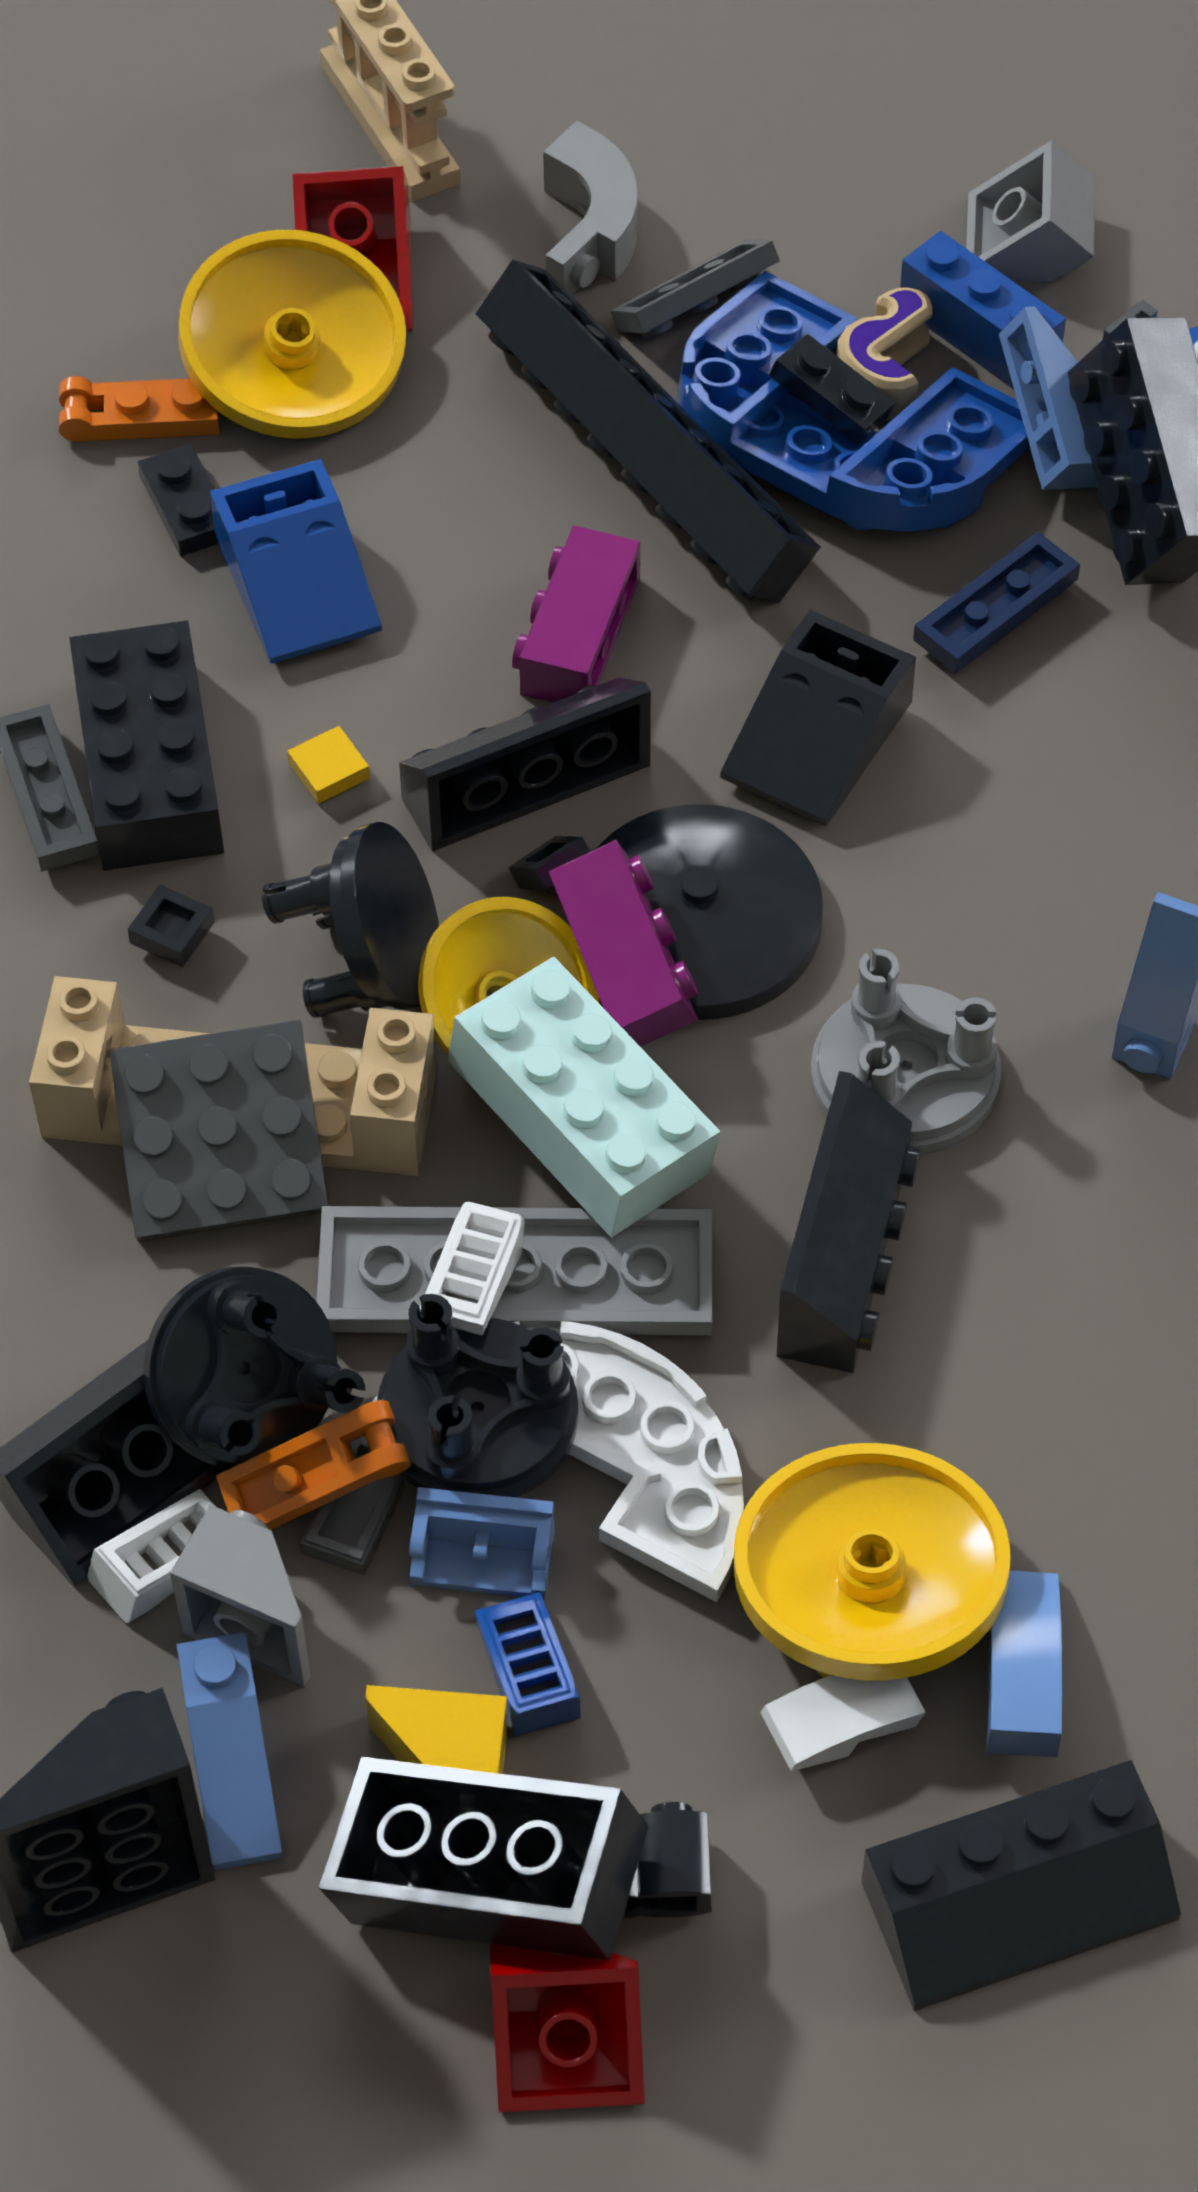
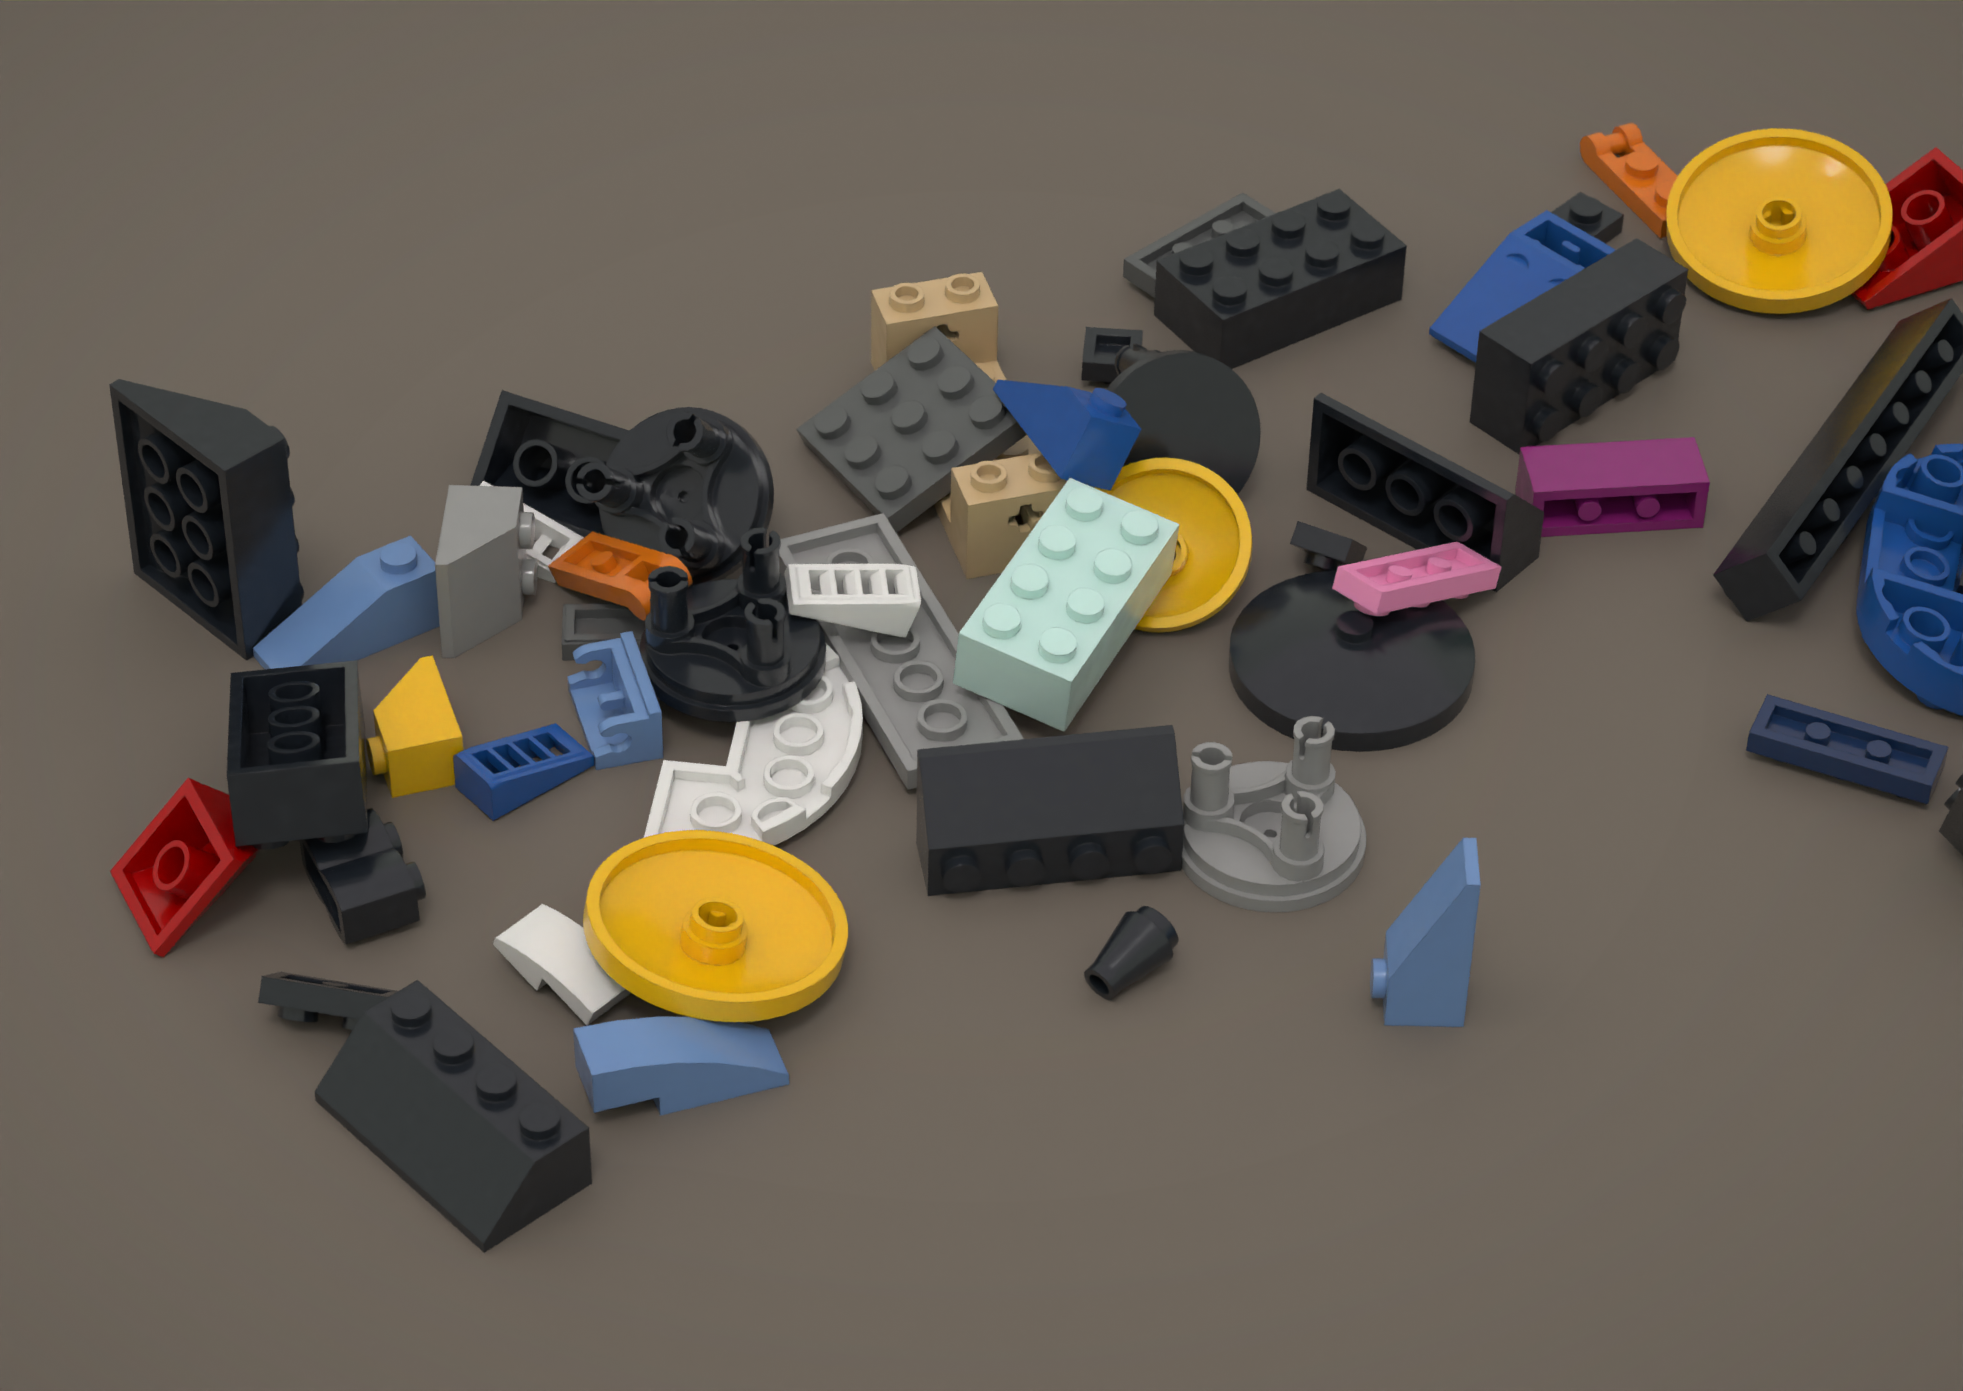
camera: 65 degrees right, 15 degrees down
(328, 764) = (1350, 389): yellow tile -> none
(381, 983) = (1075, 430): none -> blue slope
(404, 553) = (1578, 346): none -> black brick
(626, 942) = (1250, 595): magenta brick -> none
(661, 810) = (1415, 578): none -> bright pink plate
(808, 1944) = (306, 996): none -> black plate
(820, 717) = (1609, 661): black slope -> none
(1025, 1232) = (1134, 949): none -> black cone

